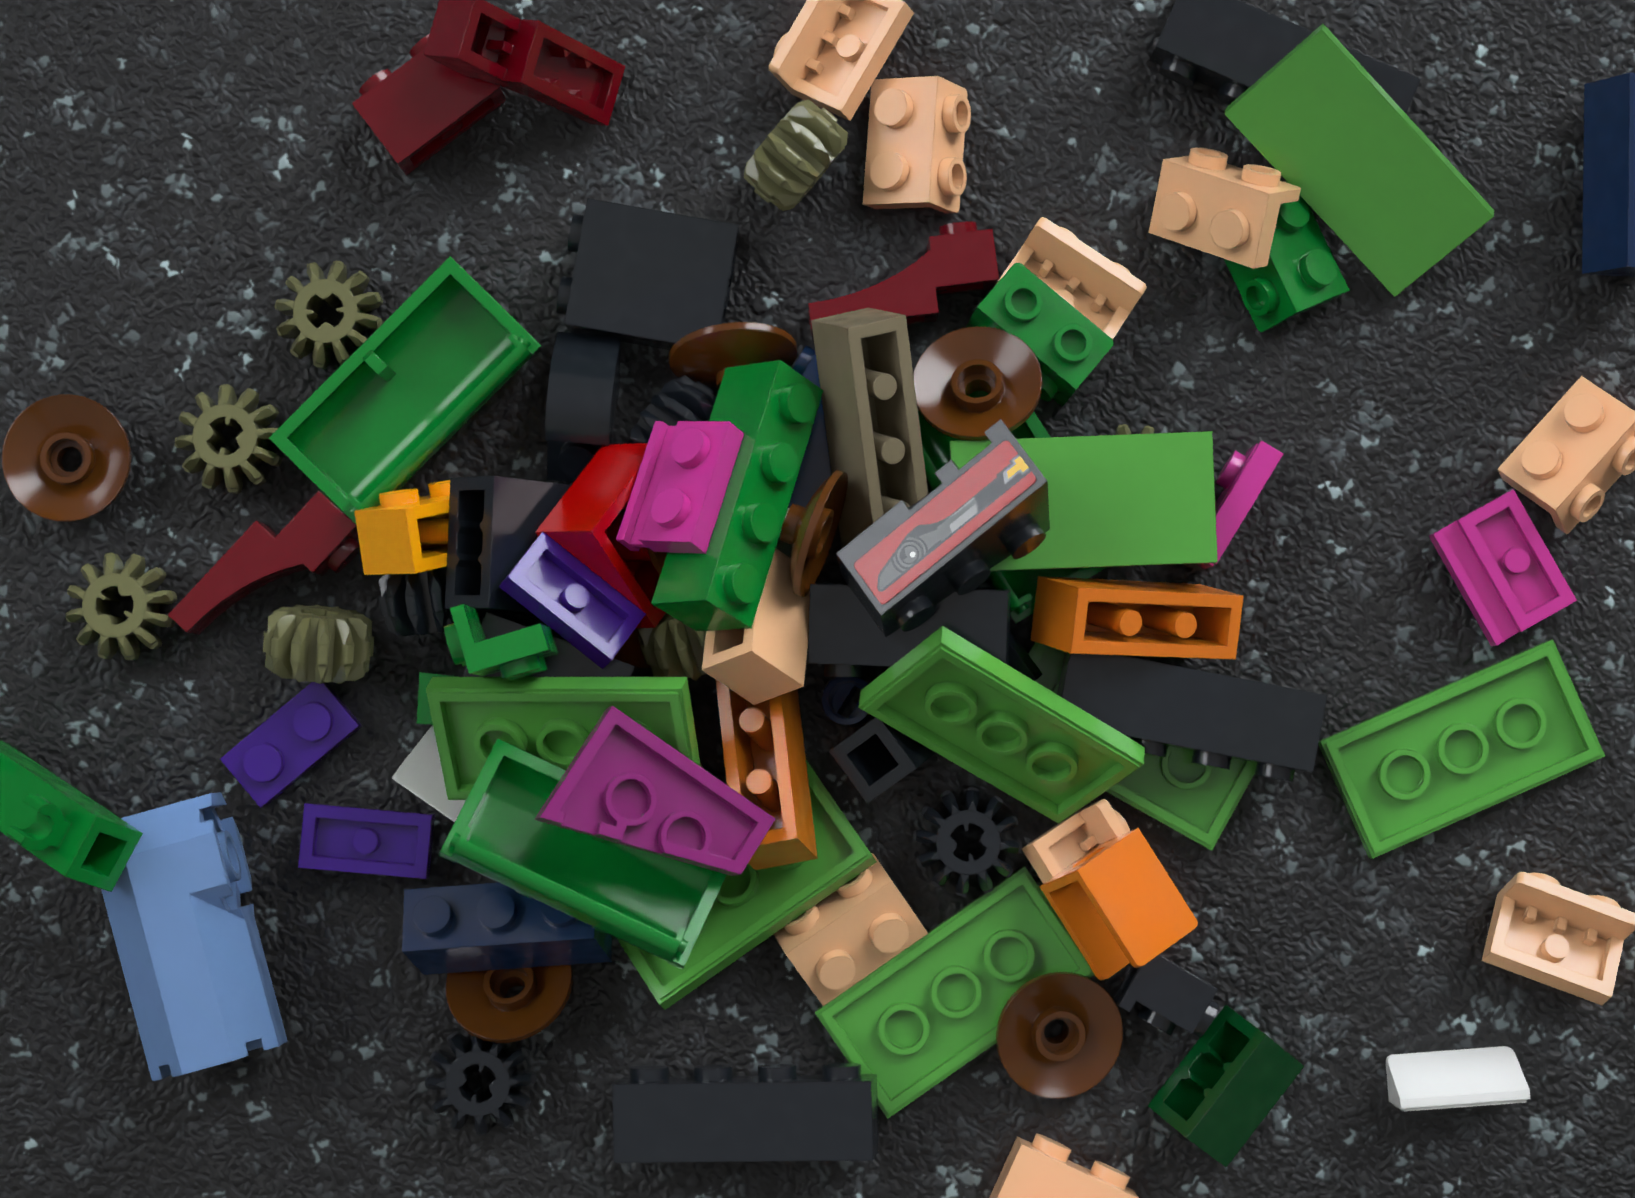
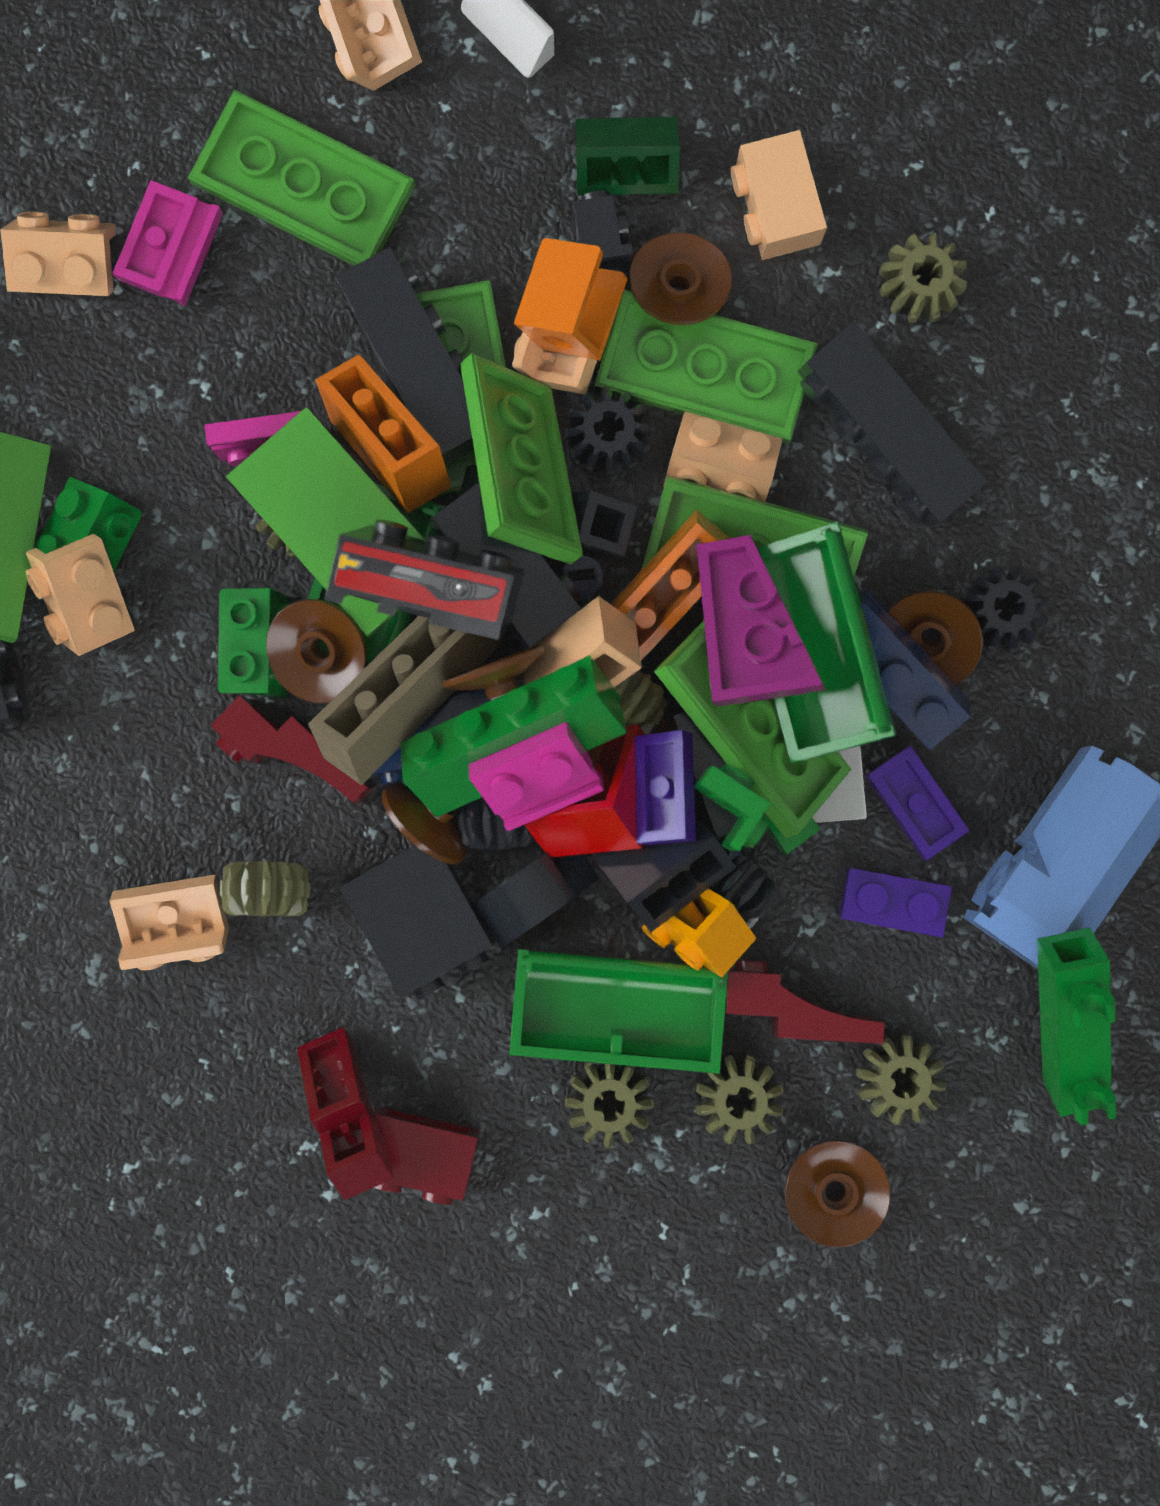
camera: 125 degrees left, 0 degrees up
(318, 644) = (822, 933): olive gear -> none
(916, 144) = (196, 821): light nougat bracket -> none
(1080, 275) = (195, 650): light nougat bracket -> none

